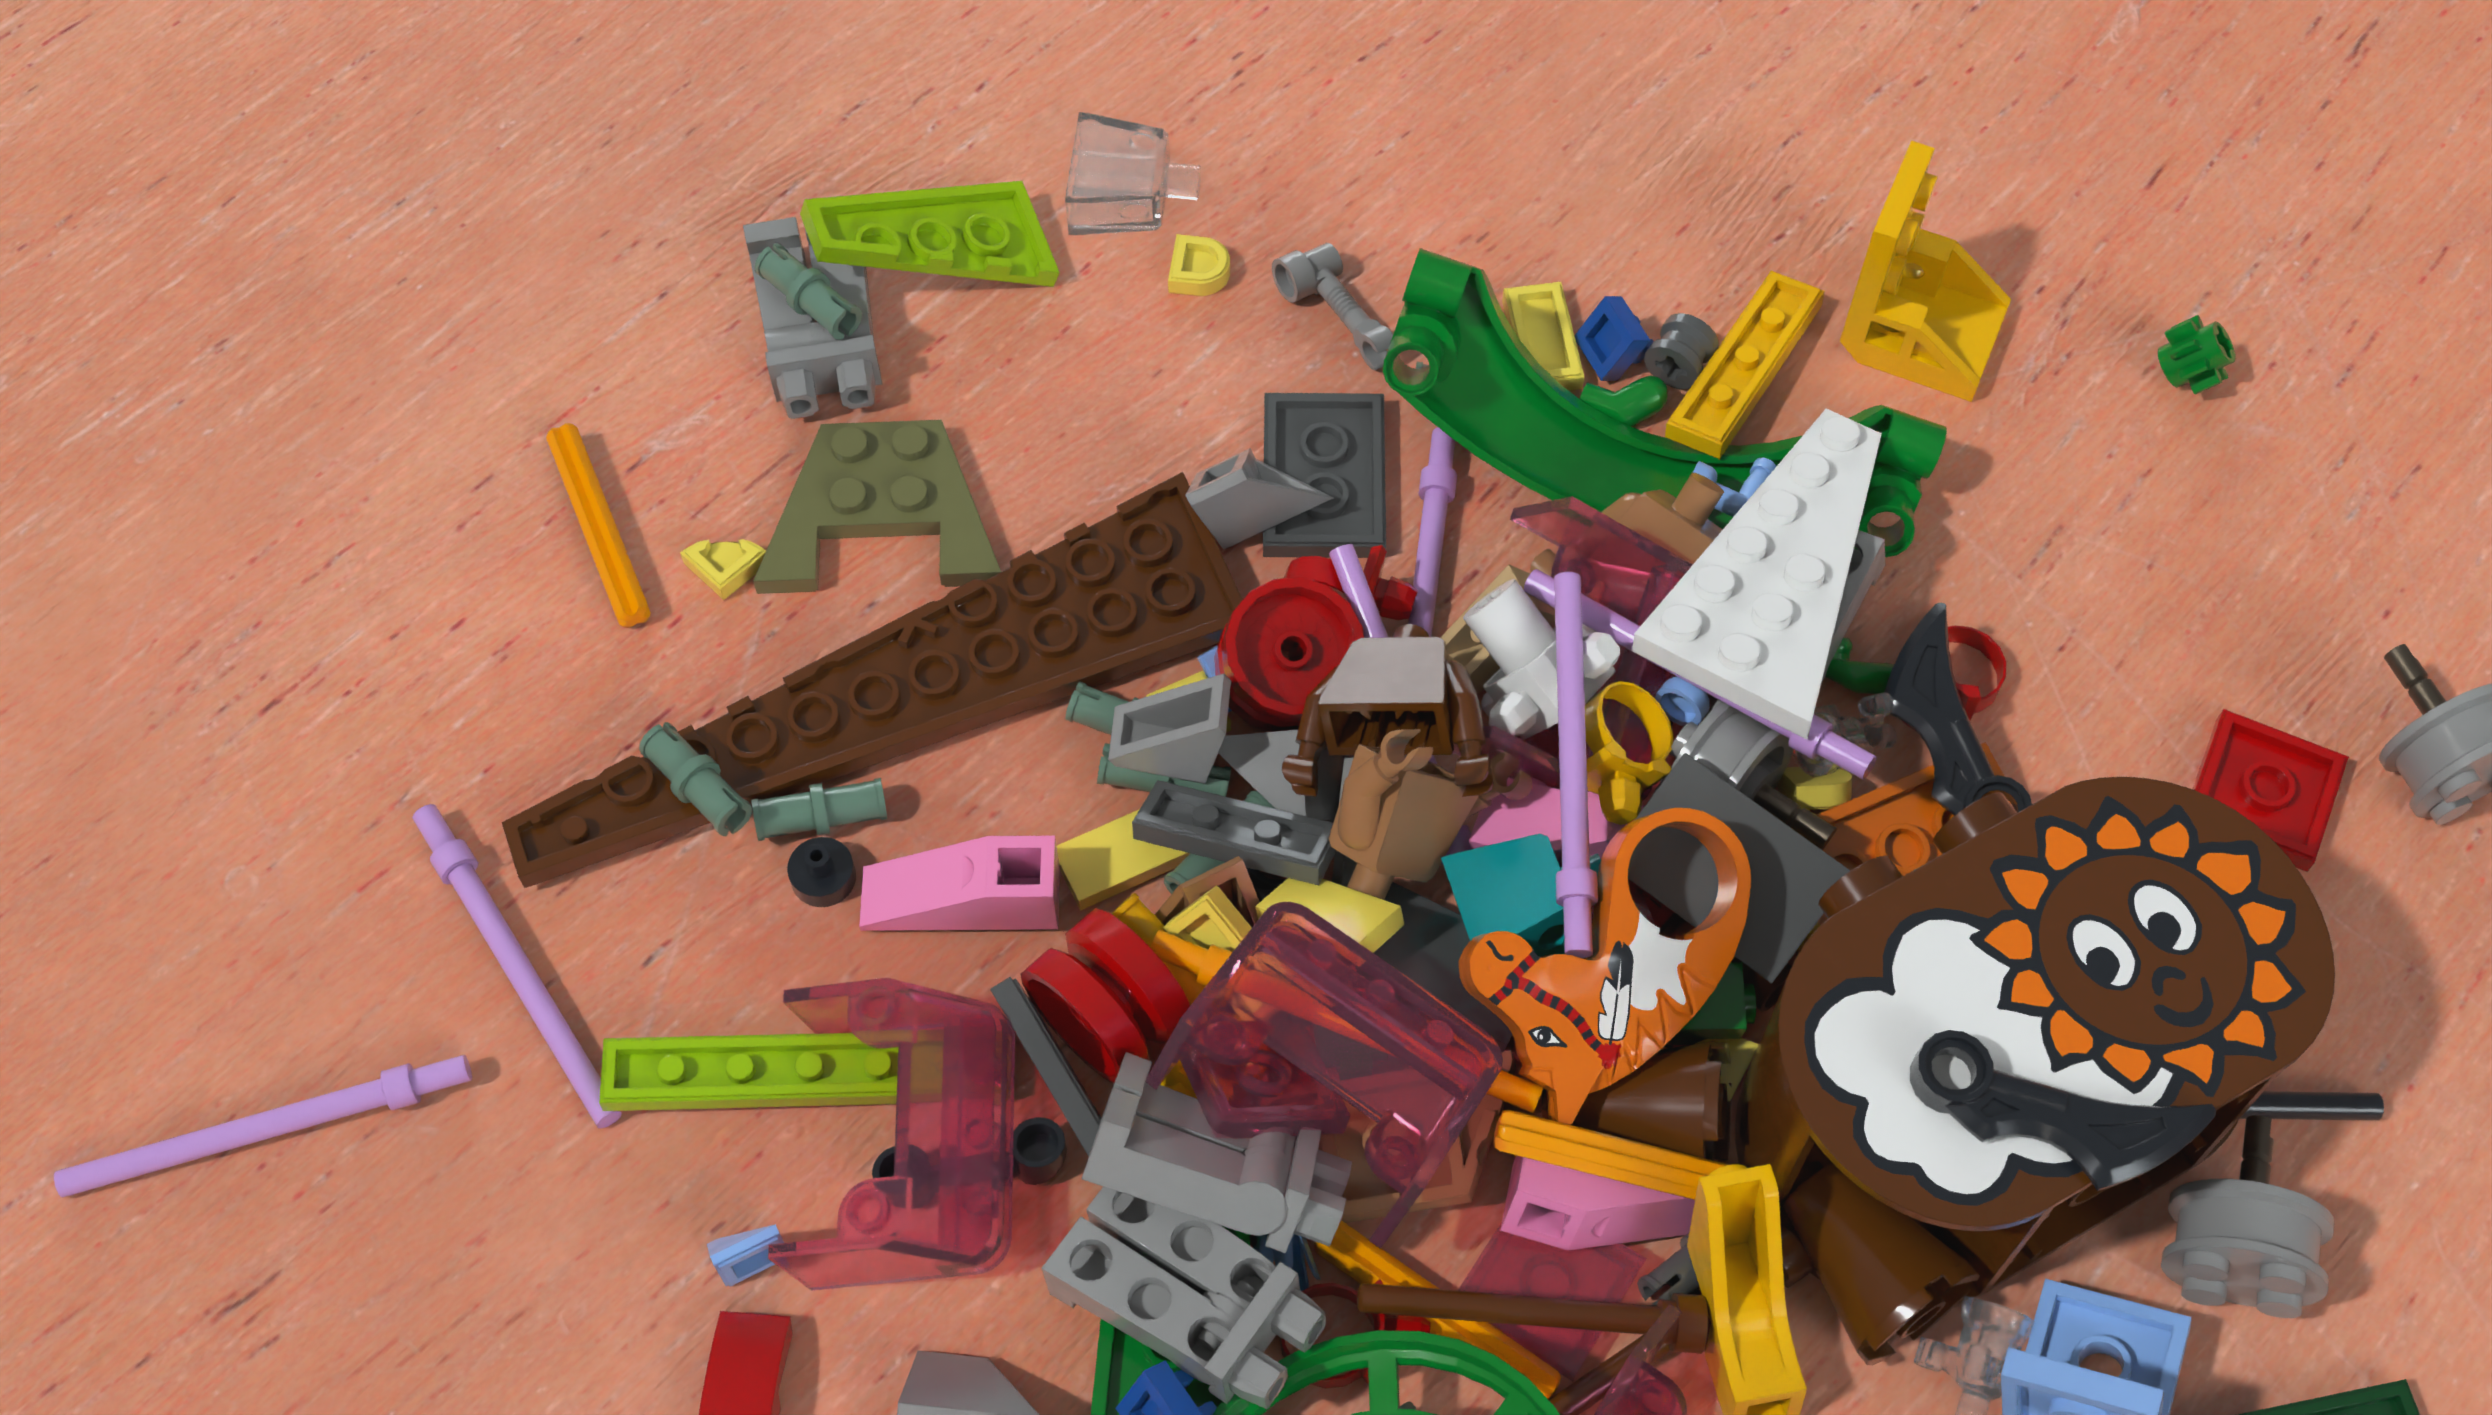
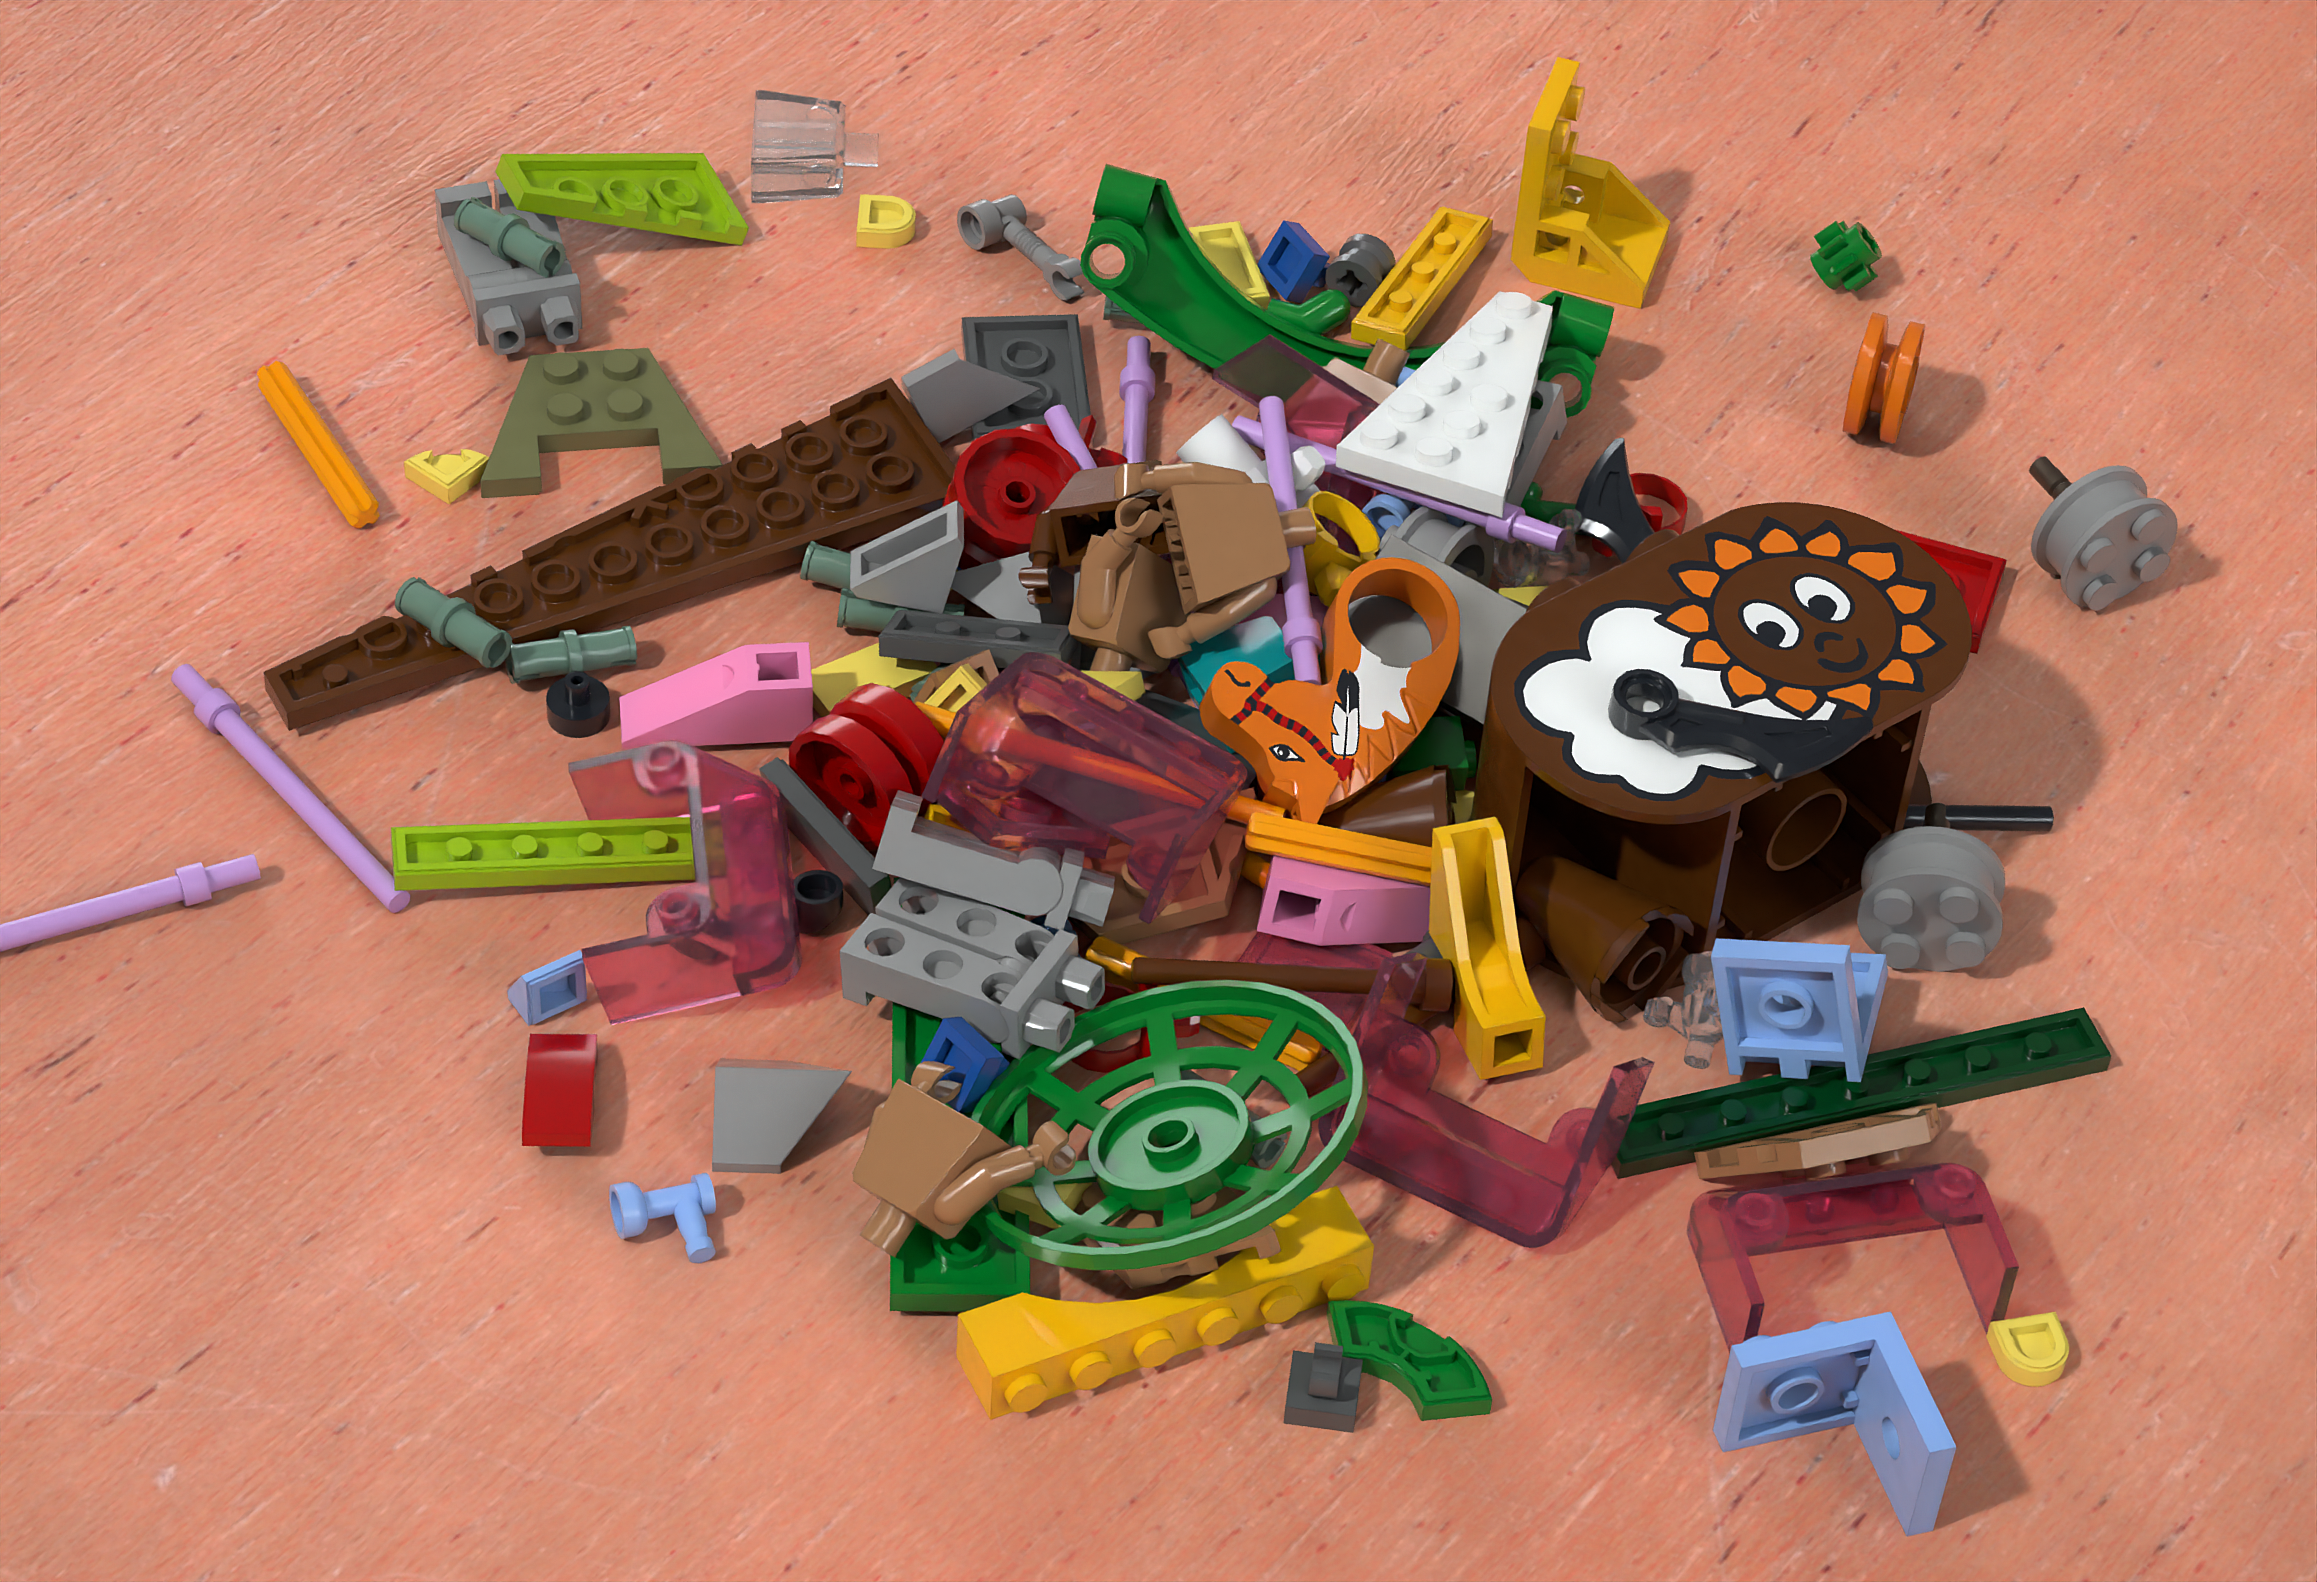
camera: 10 degrees left, 15 degrees down
(1497, 770) = (1222, 544): none -> medium nougat torso
(2232, 526) = (1883, 378): none -> orange wheel

